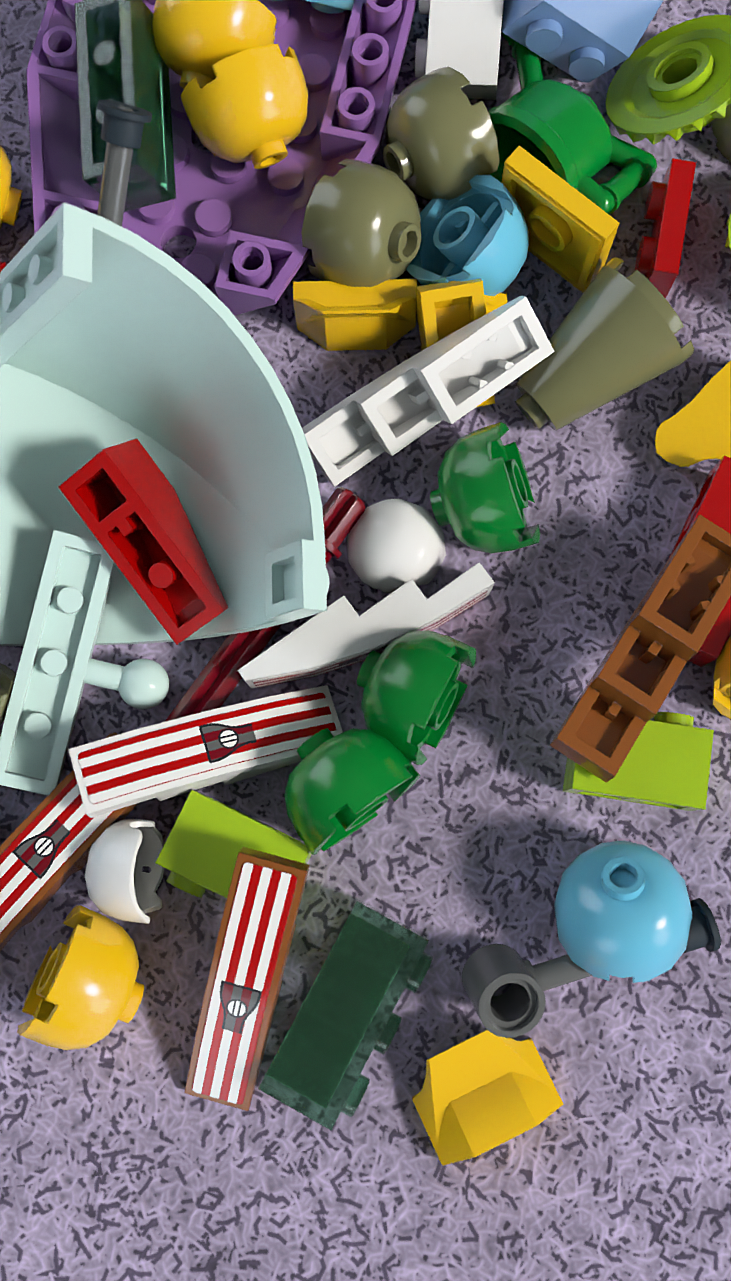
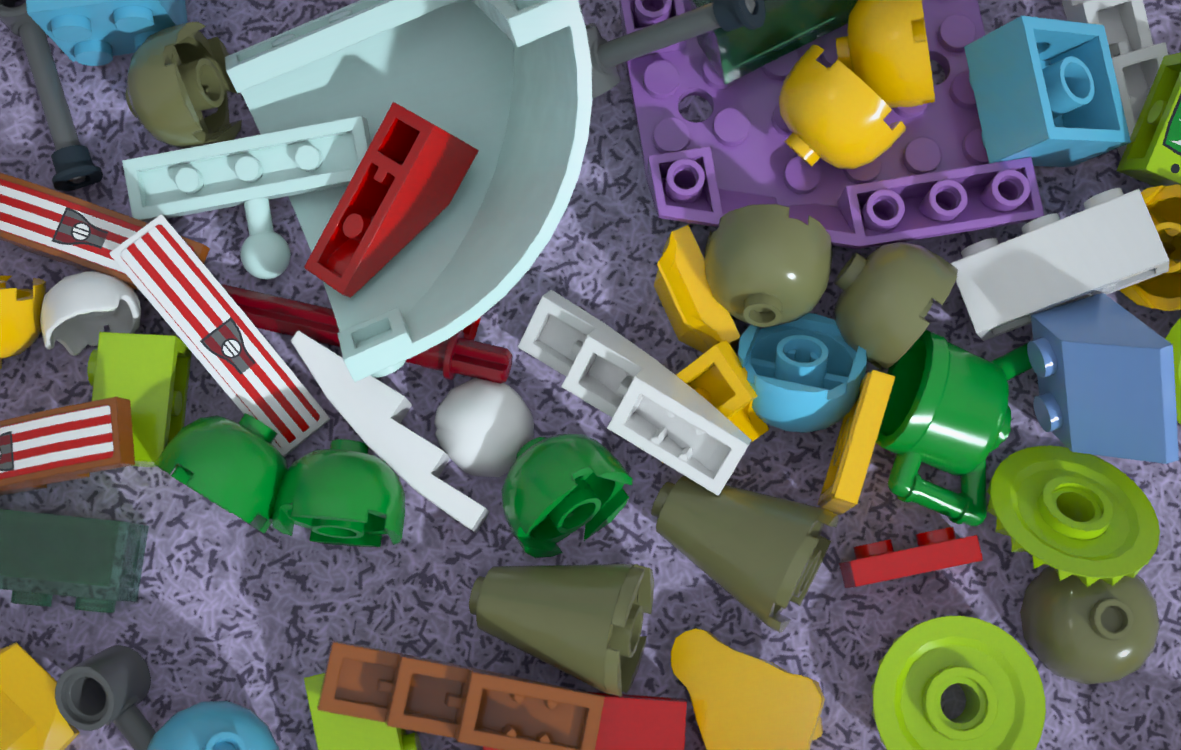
camera: 65 degrees right, 0 degrees up
(607, 528) = (570, 617): none -> olive cone

